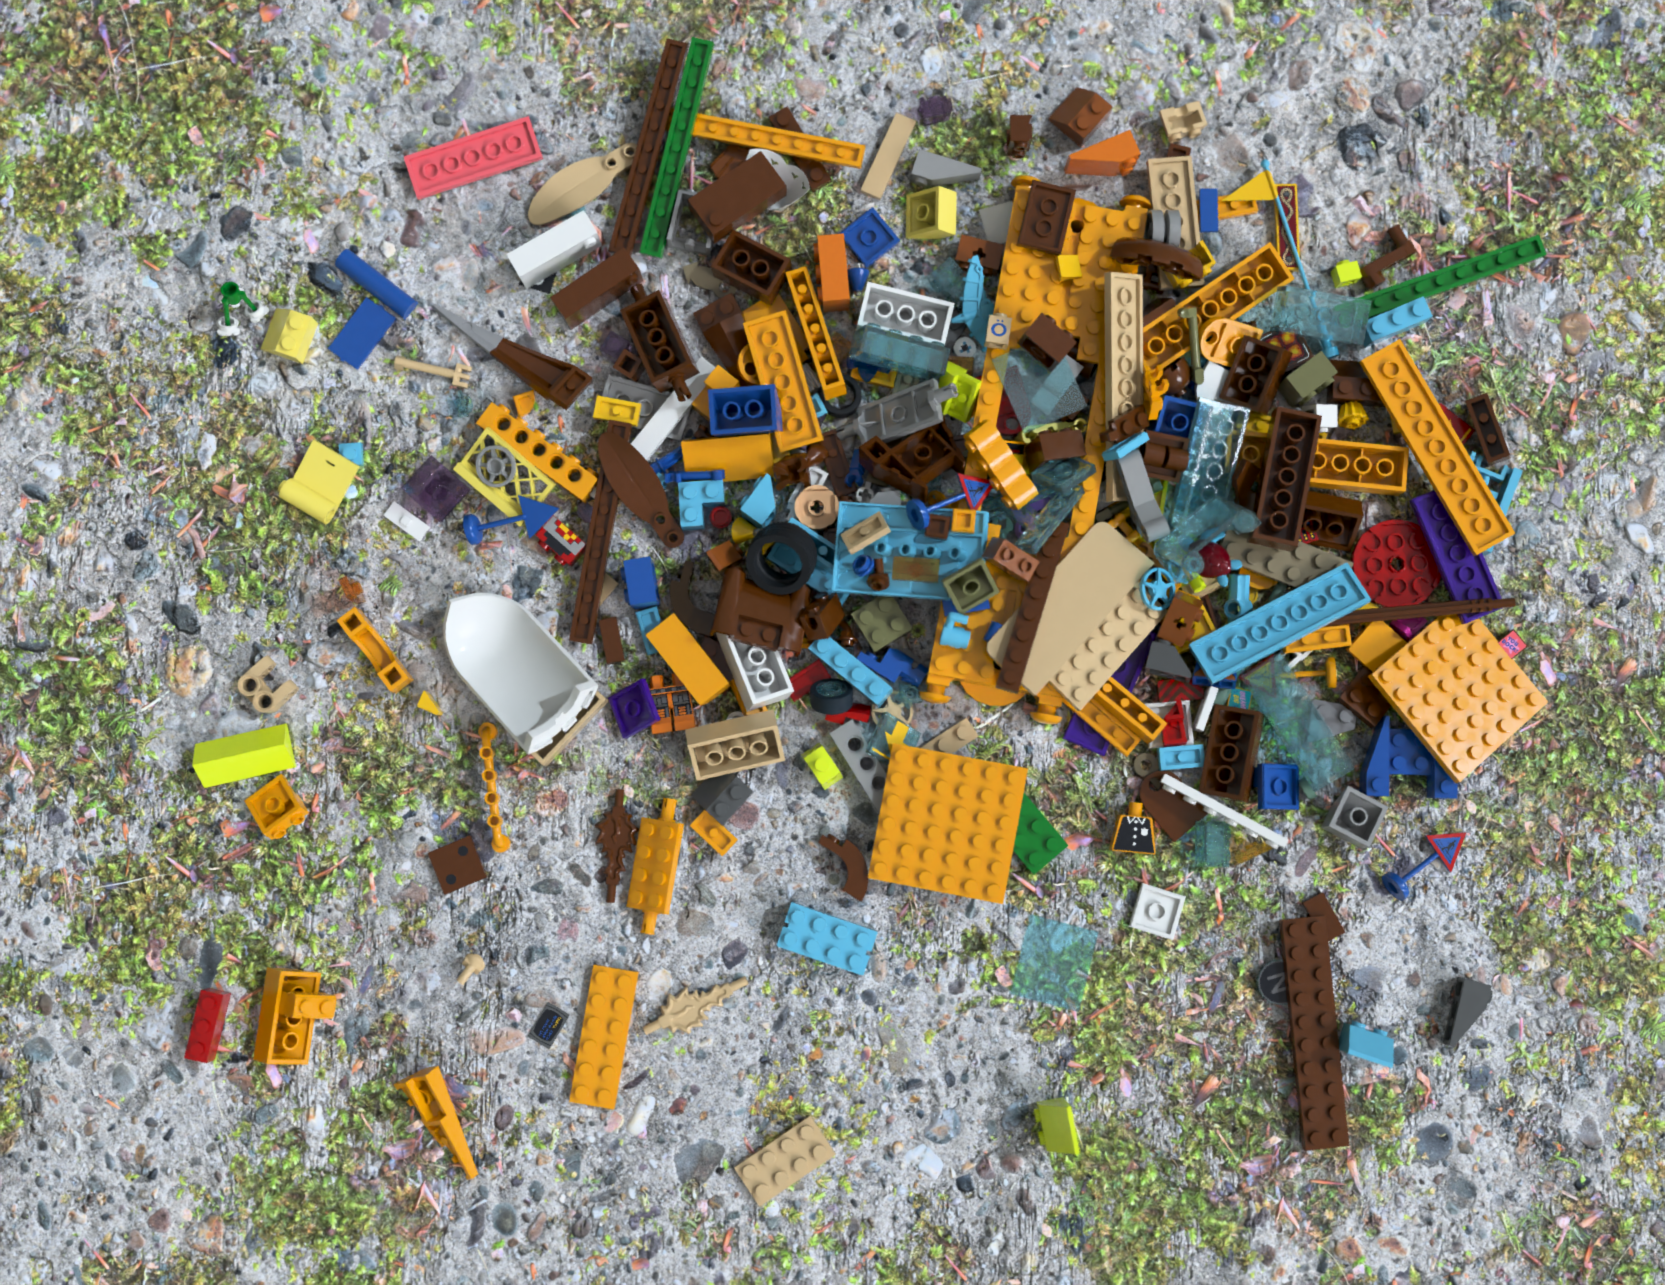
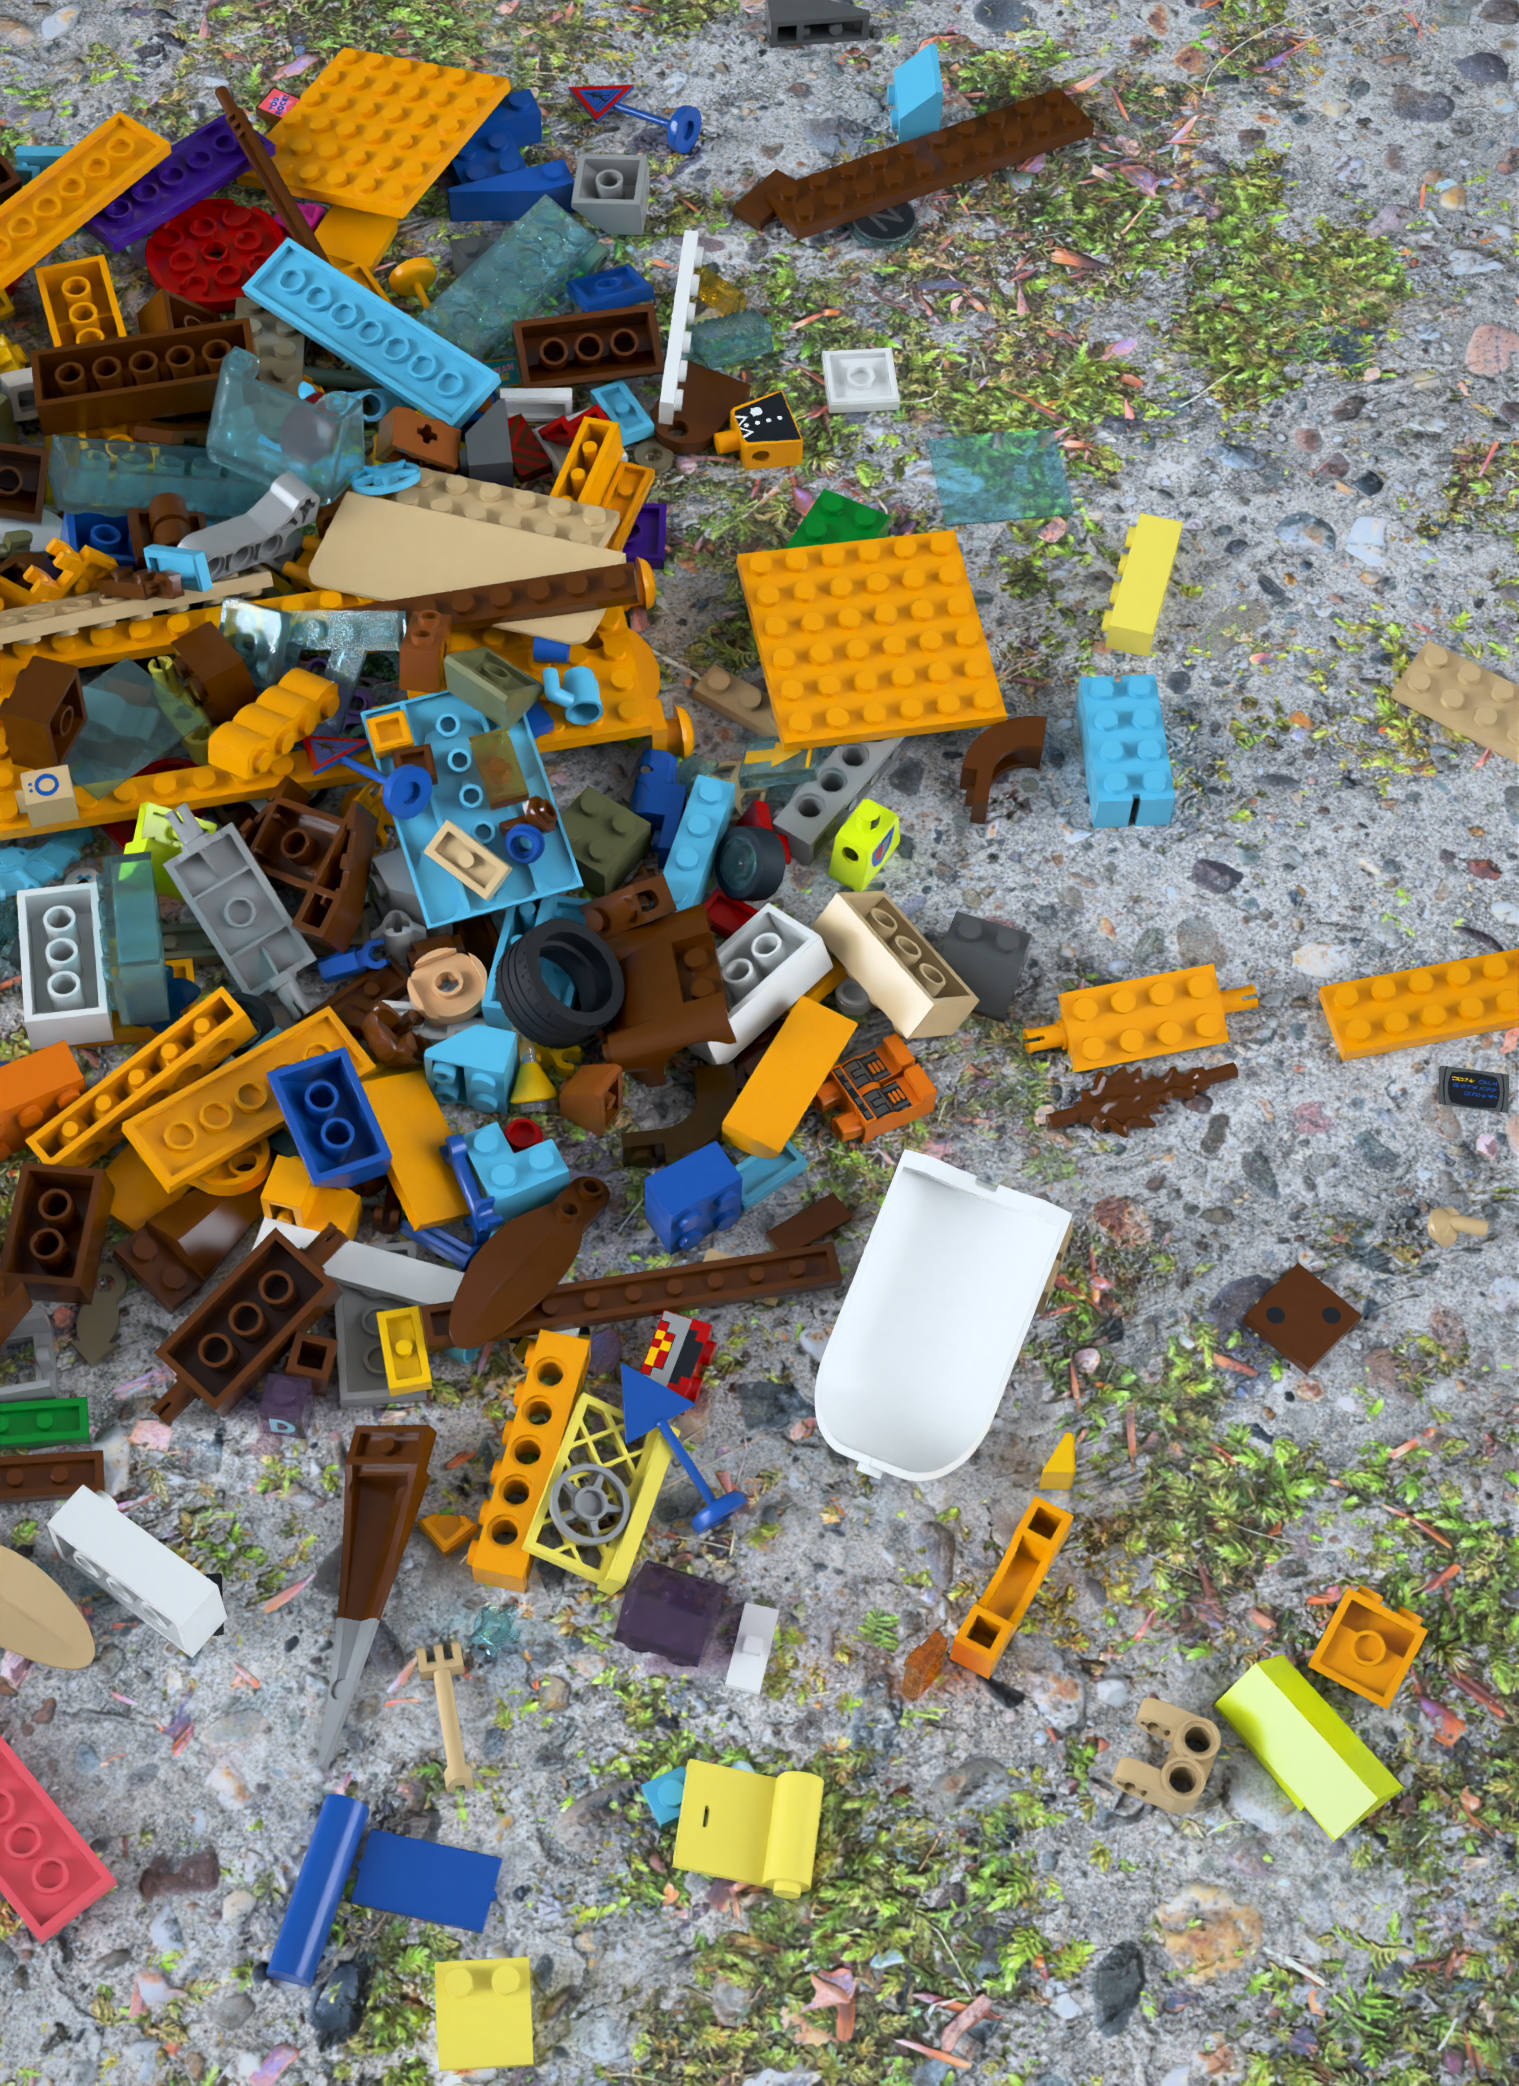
camera: 115 degrees left, 25 degrees down
(488, 732) = (1227, 1266): light orange bar -> none
(597, 288) = (187, 1468): reddish brown brick -> none
(634, 708) = (910, 1123): dark purple tile -> none
(688, 1009) = (1332, 903): tan piece -> none
(713, 832) = (1046, 960): light orange plate -> none
(937, 1006) = (1143, 584): none -> light yellow brick
(1057, 1126) = (1226, 376): neon yellow slope -> none
(1364, 698) = (429, 232): reddish brown plate -> none

